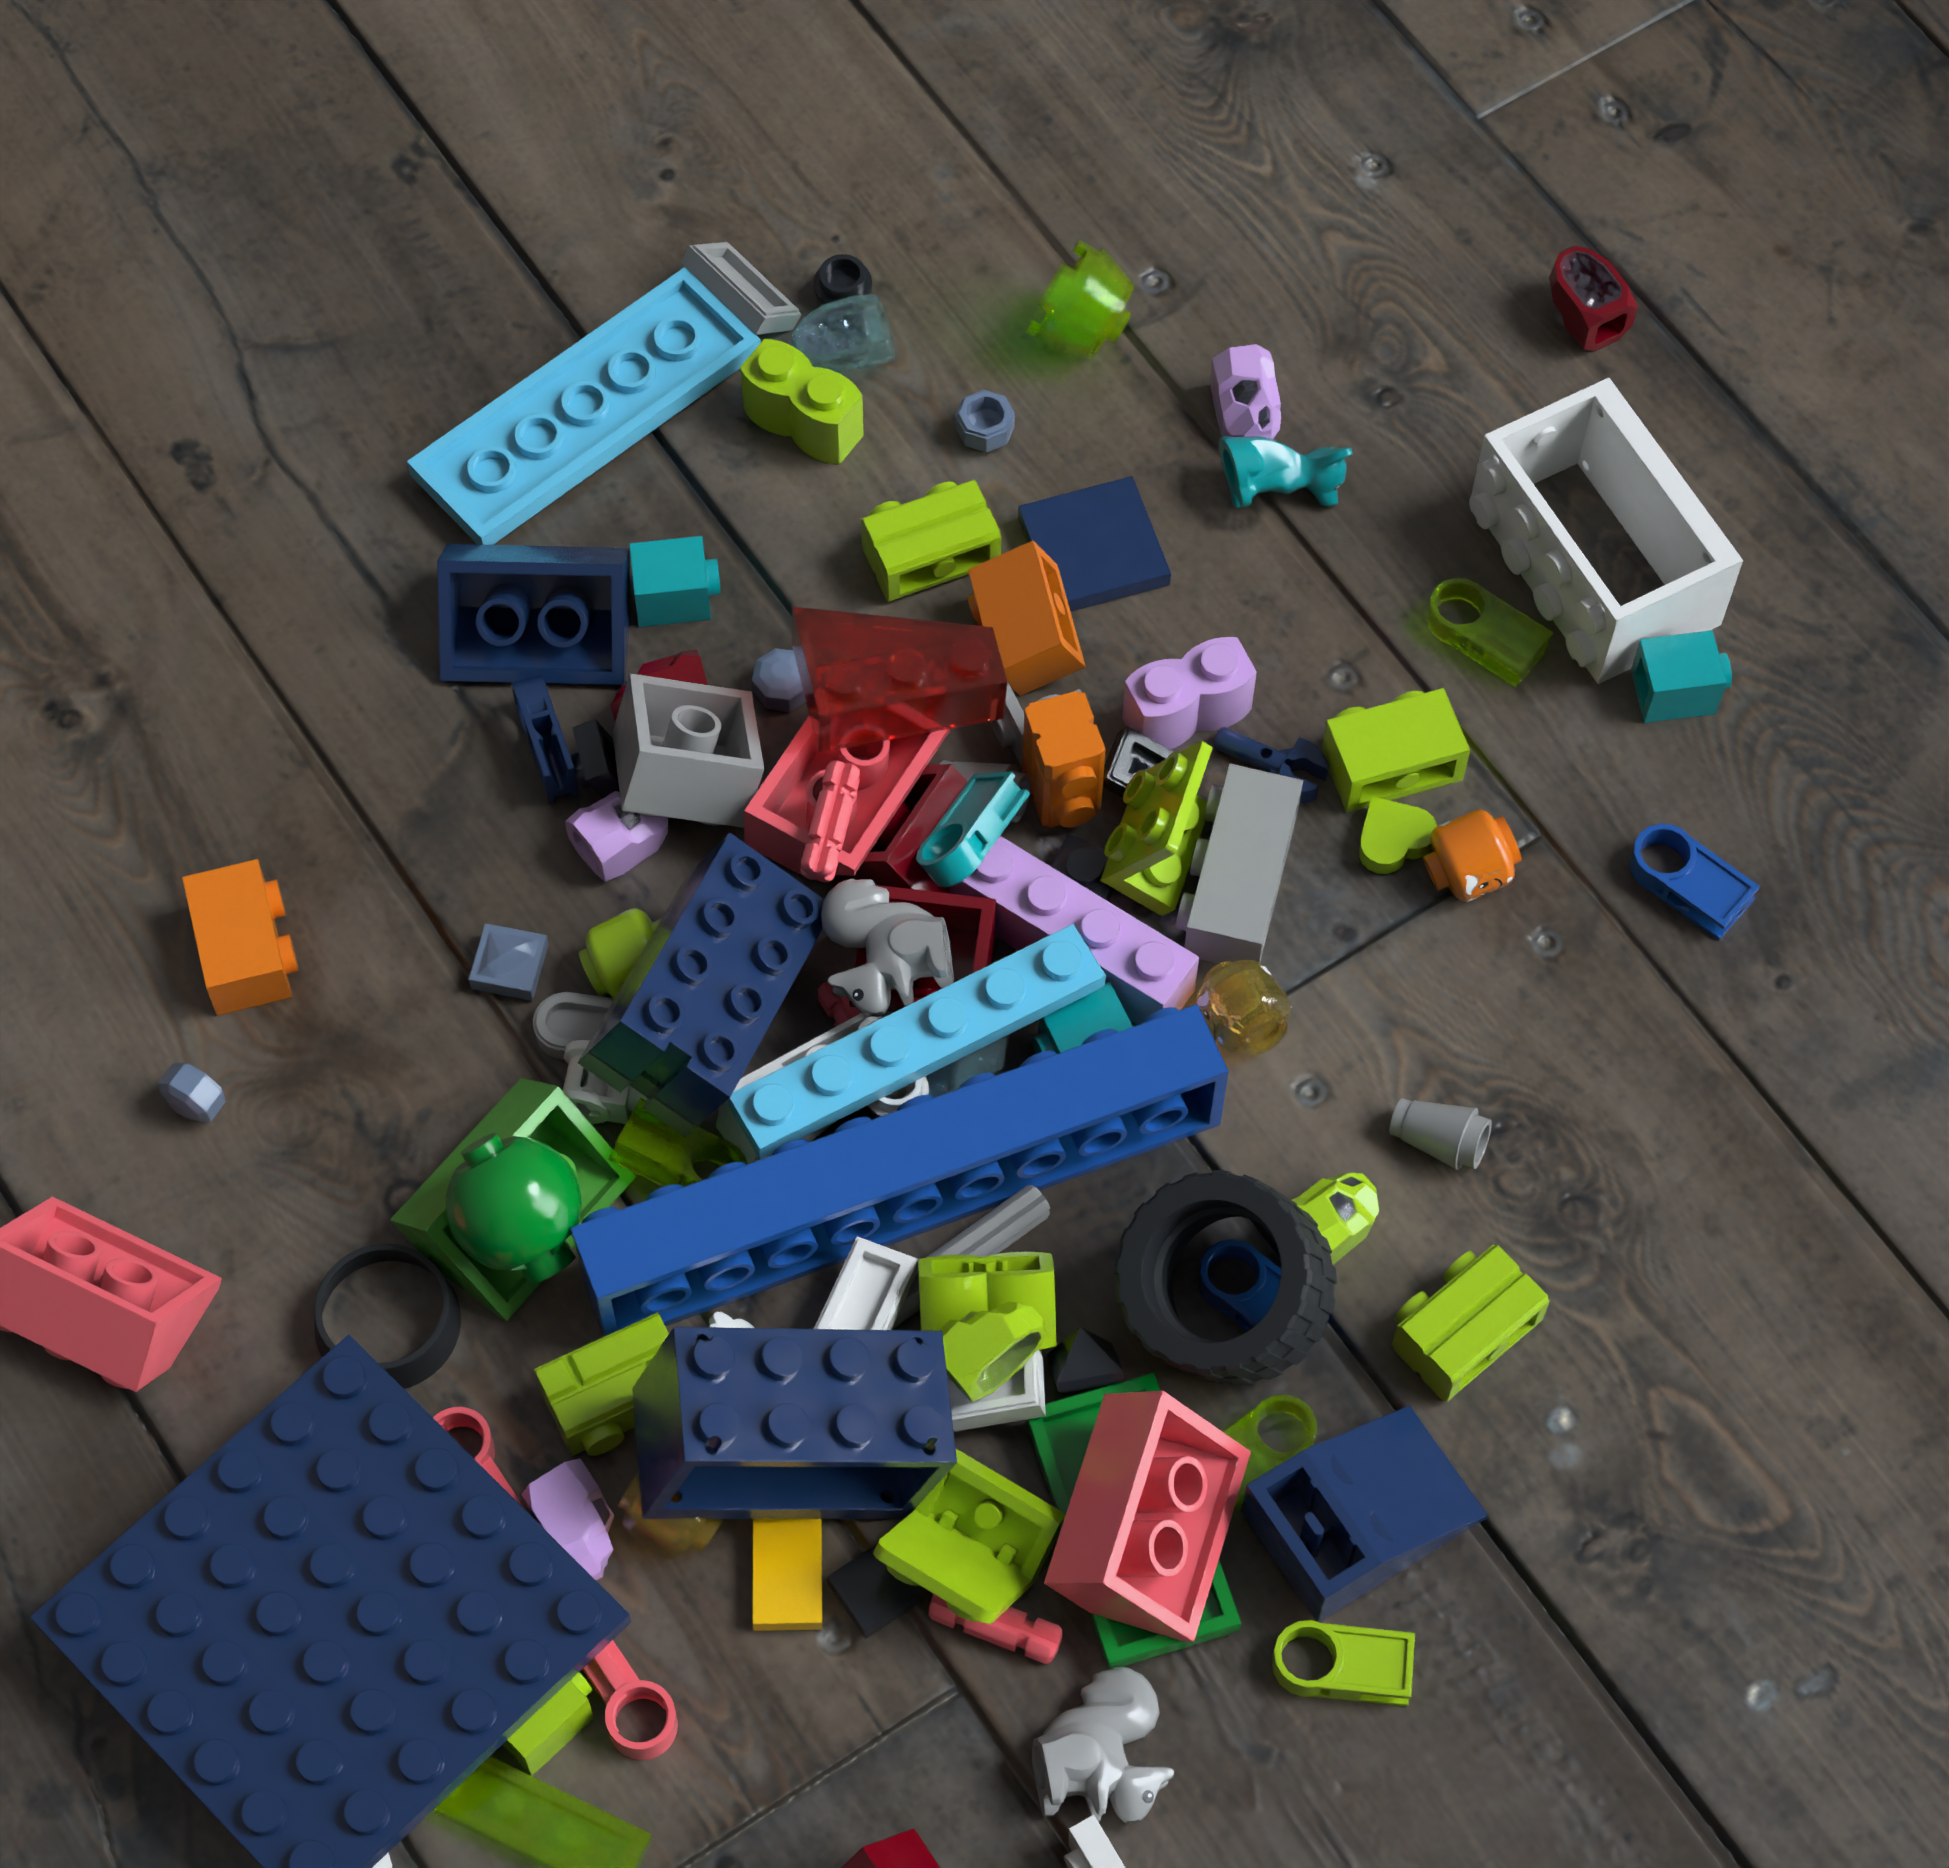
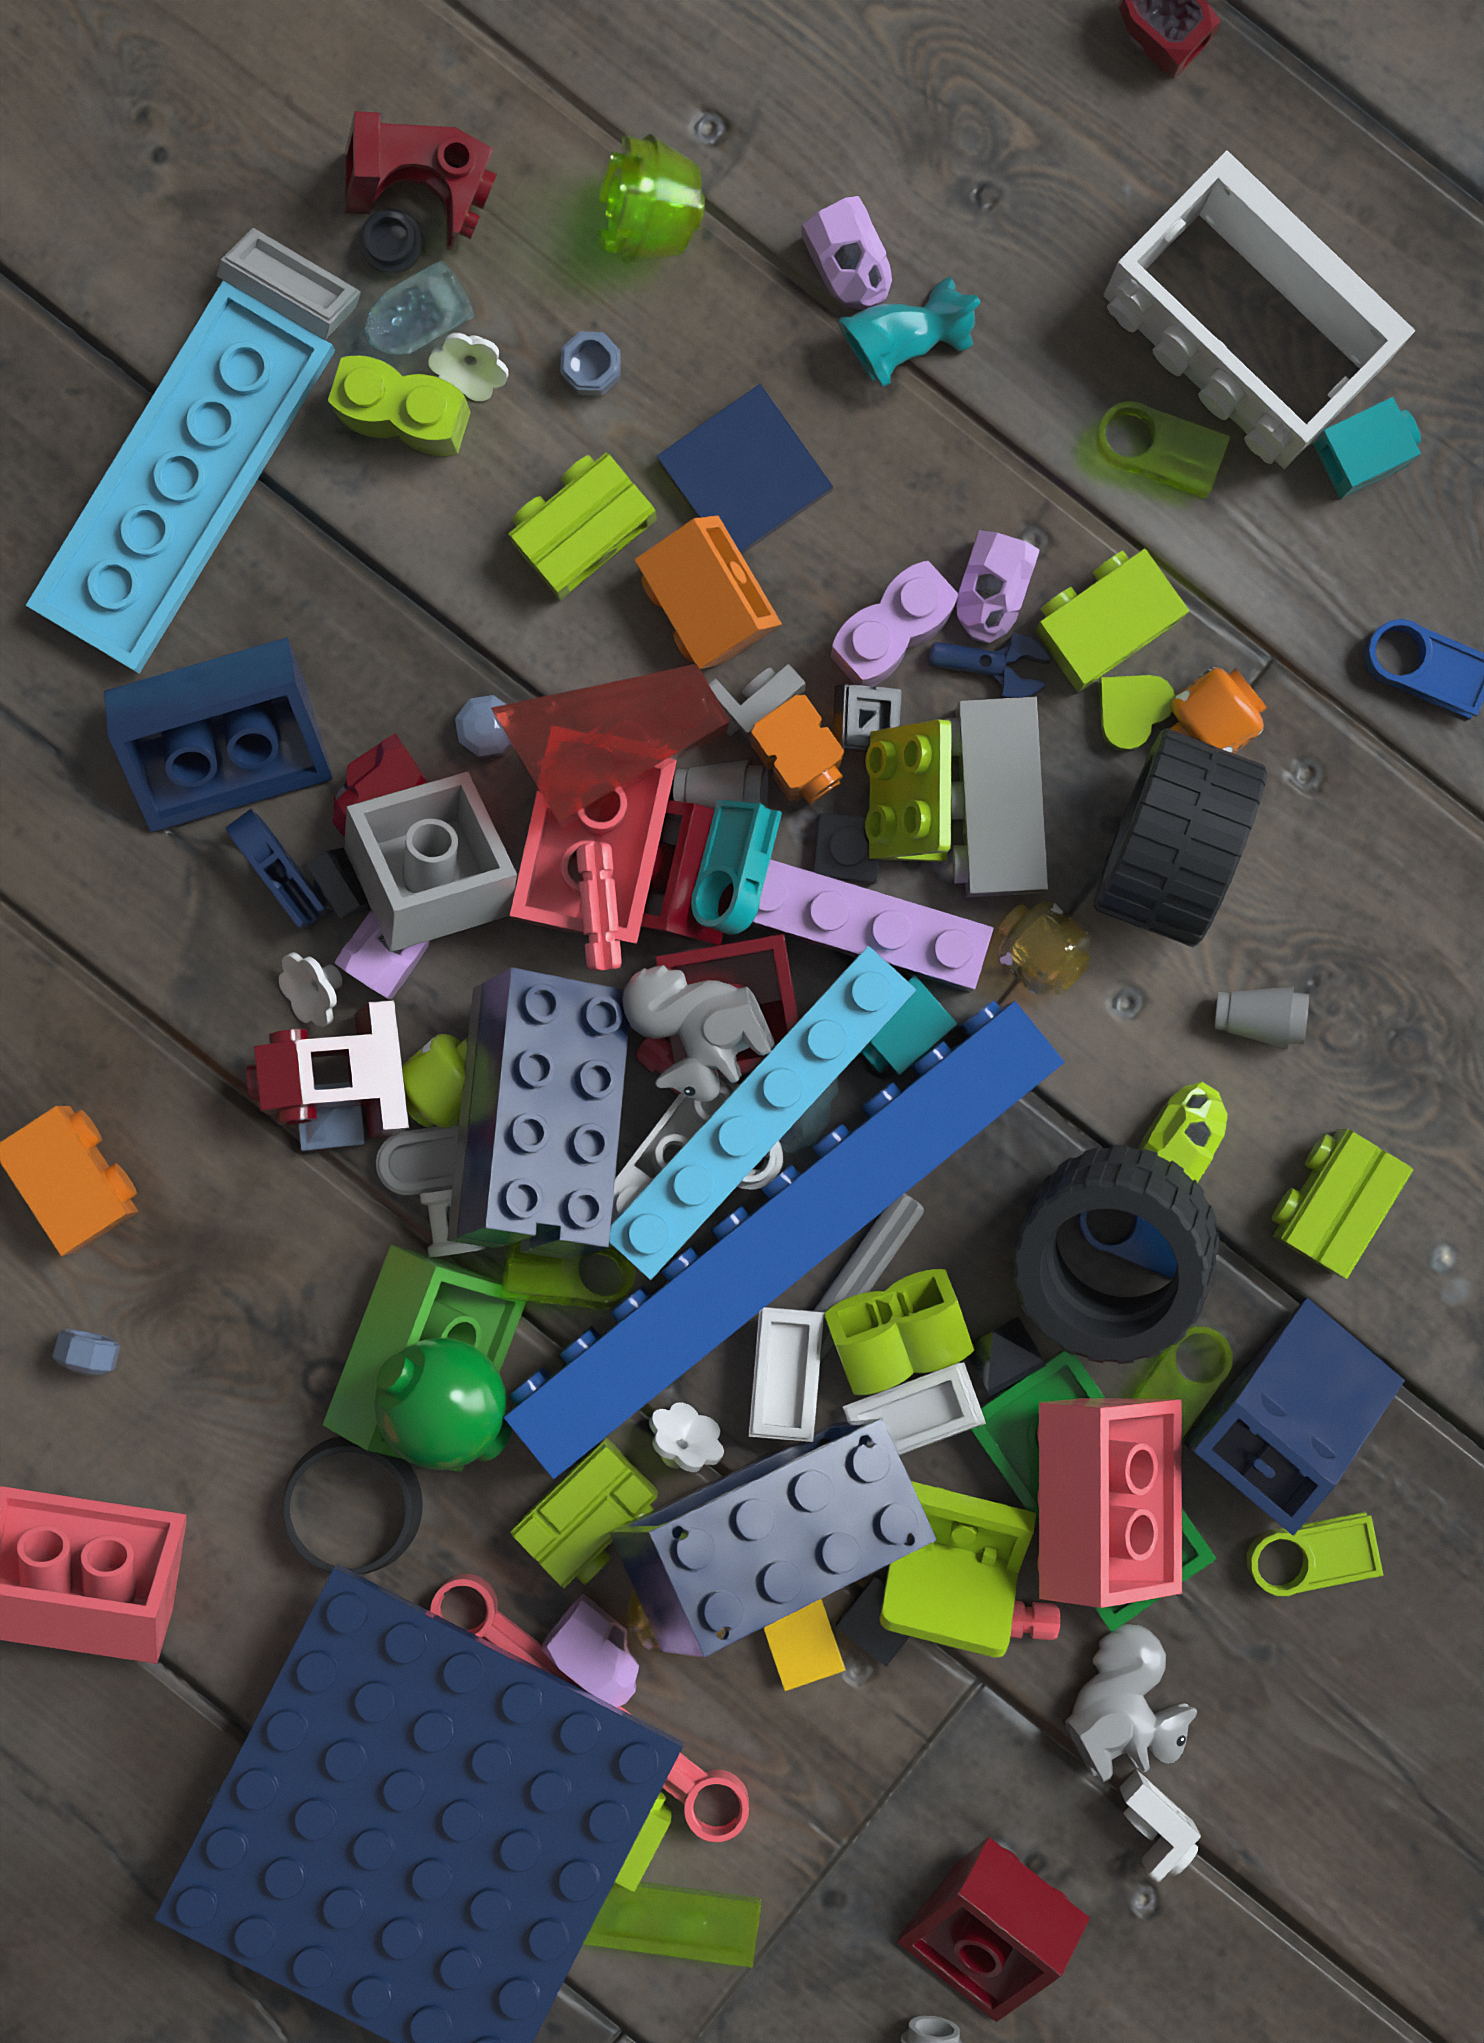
camera: 15 degrees left, 25 degrees up
(533, 842) = (310, 988): none -> white plant
(557, 932) = (285, 1082): none -> tile
(673, 581) = (342, 656): teal brick -> none
(880, 389) = (469, 365): none -> white plant
(892, 217) = (419, 154): none -> dark red tile
(991, 1347) = (916, 1391): lime rock -> none
(1296, 691) = (994, 585): none -> lavender rock
(1400, 923) = (1180, 838): none -> black tyre

